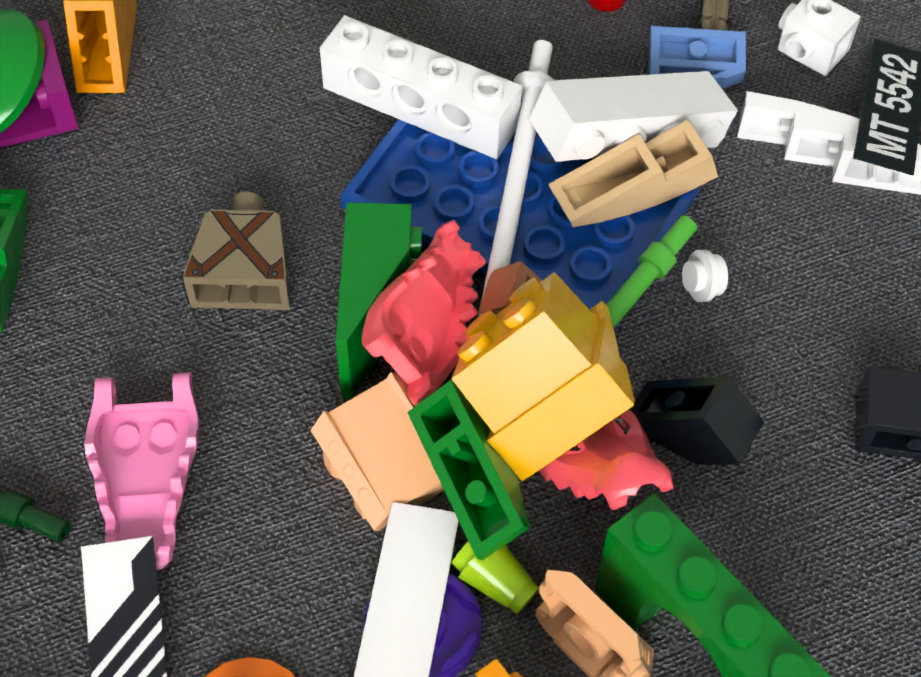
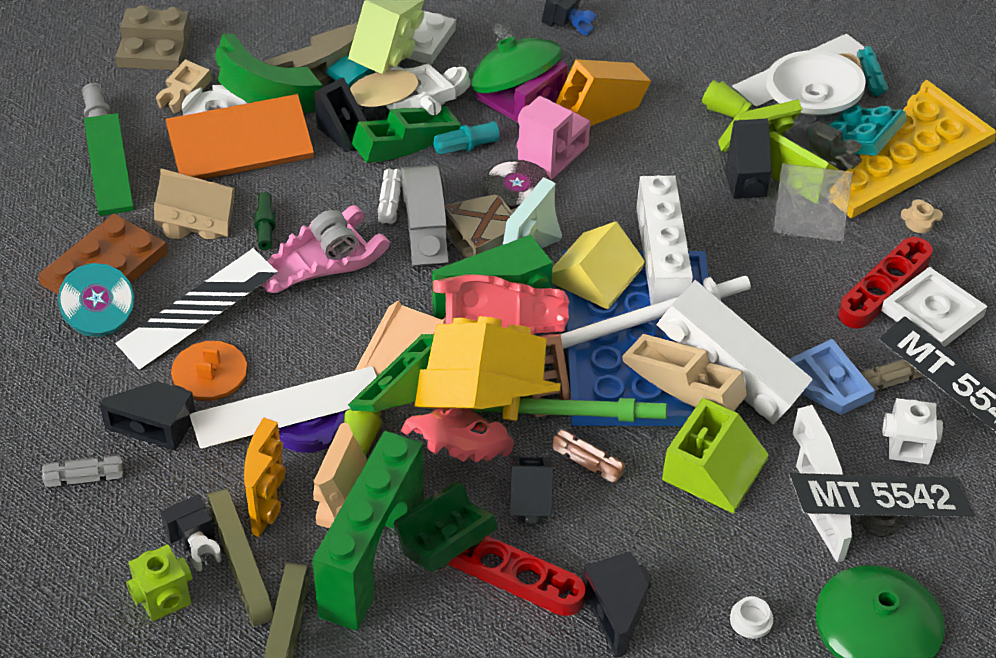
camera: 60 degrees right, 10 degrees down
(55, 196) = (466, 138): none -> teal axle
(87, 334) = (389, 196): none -> white axle
(145, 110) = (551, 135): none -> bright pink brick
(154, 433) = (335, 236): none -> light grey wheel
(167, 293) = (425, 214): none -> light grey arch
(178, 188) = (513, 180): none -> clear smoke tile
(300, 205) = (535, 217): none -> light aqua plate
(400, 164) = (599, 265): none -> light yellow slope
(672, 340) = (588, 455): none -> nougat axle
(705, 275) = (648, 449): white plate -> none
(747, 538) = (443, 527): none -> dark green bracket
(753, 221) = (714, 456): none -> lime slope
(803, 512) = (517, 561): none -> red beam

